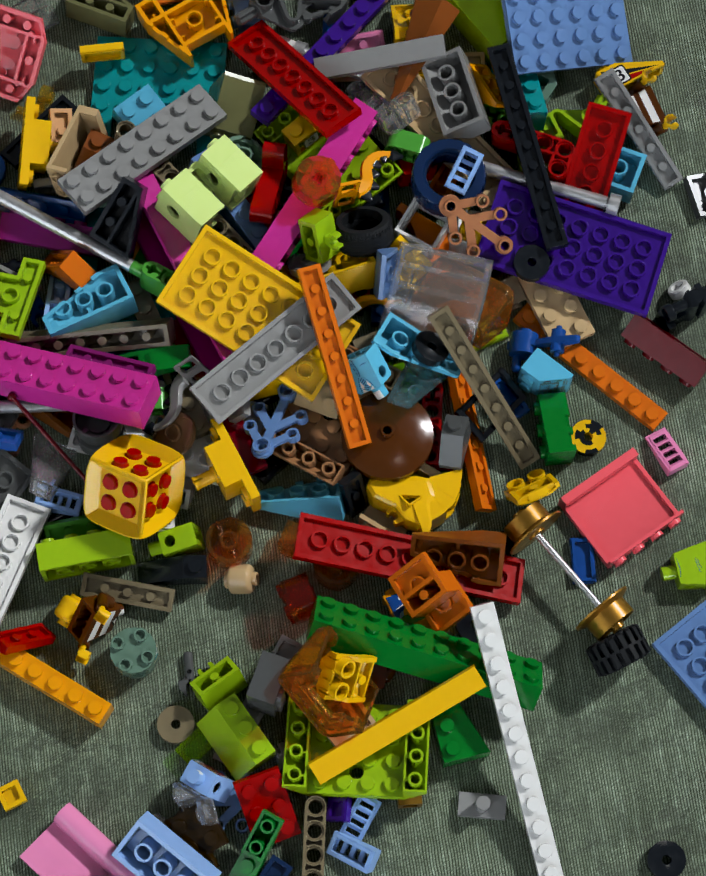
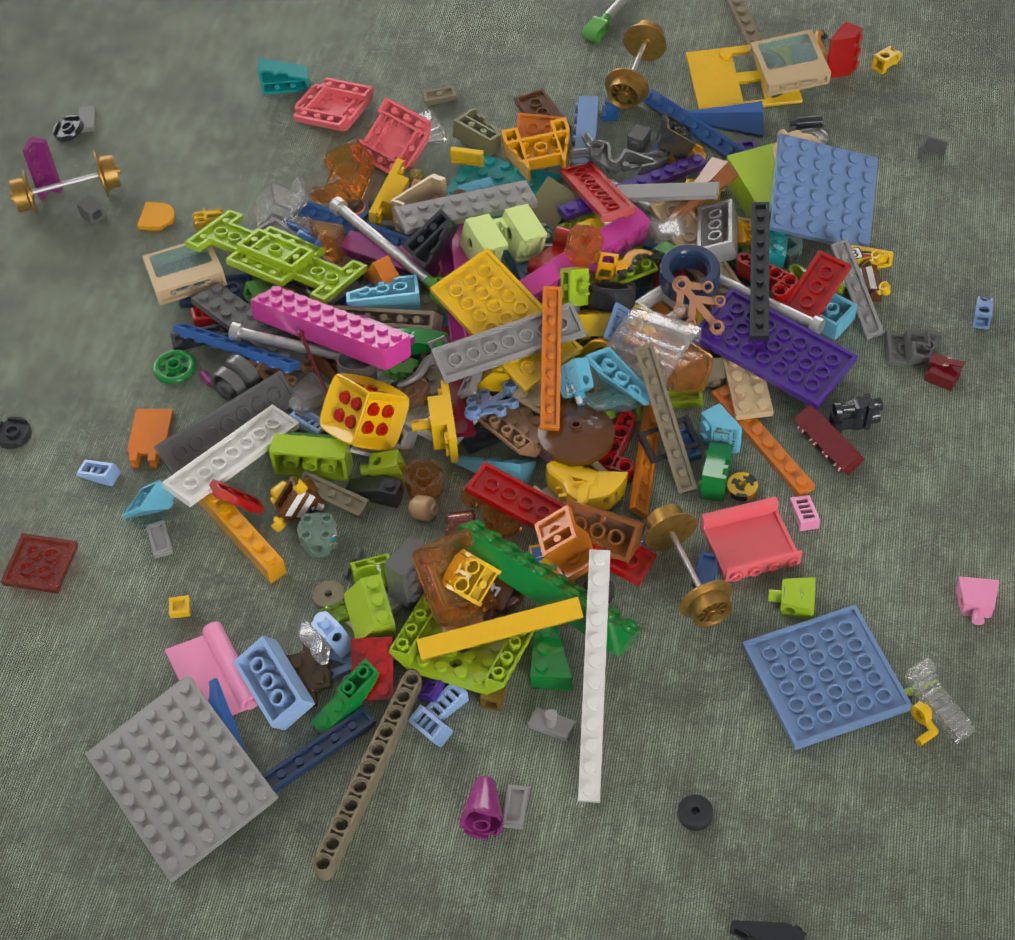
camera: 25 degrees right, 20 degrees down
(353, 493) = (535, 468): black plate -> none
(421, 348) = (630, 377): black piece -> none
(454, 441) = (628, 451): dark grey slope -> none
(471, 153) = (701, 257): light blue slope -> none
(525, 342) = (735, 406): blue piece -> none
(527, 272) = (735, 353): black piece -> none
(535, 489) = (687, 501): yellow slope -> none
(618, 650) = (708, 633): black tyre -> none

